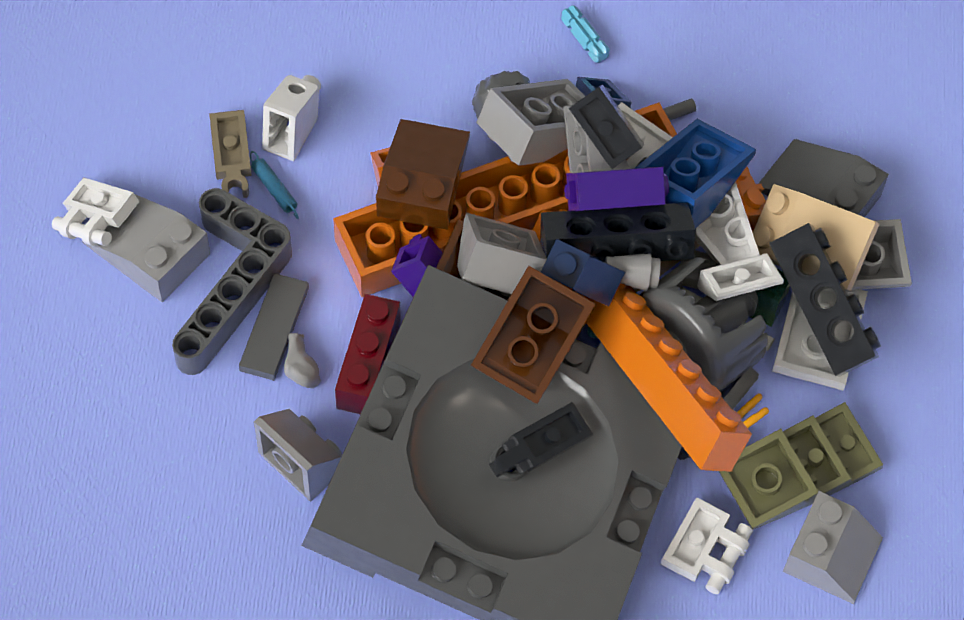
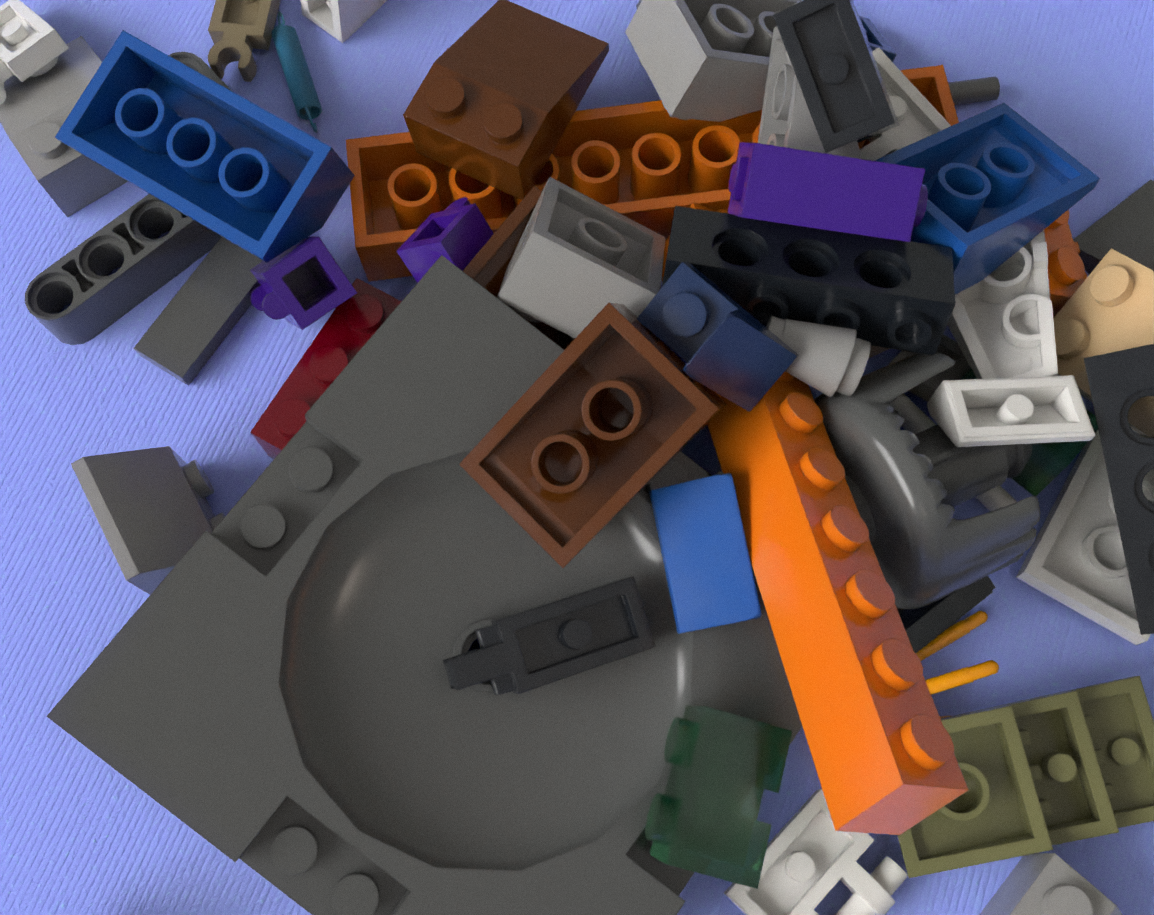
camera: 20 degrees right, 10 degrees up
(264, 239) = (205, 150): none -> blue slope
(299, 365) = (230, 371): light grey animal -> none
(334, 302) = (300, 284): none -> dark purple brick
(605, 382) = (705, 553): none -> blue slope
(641, 492) = (716, 794): none -> clear green brick

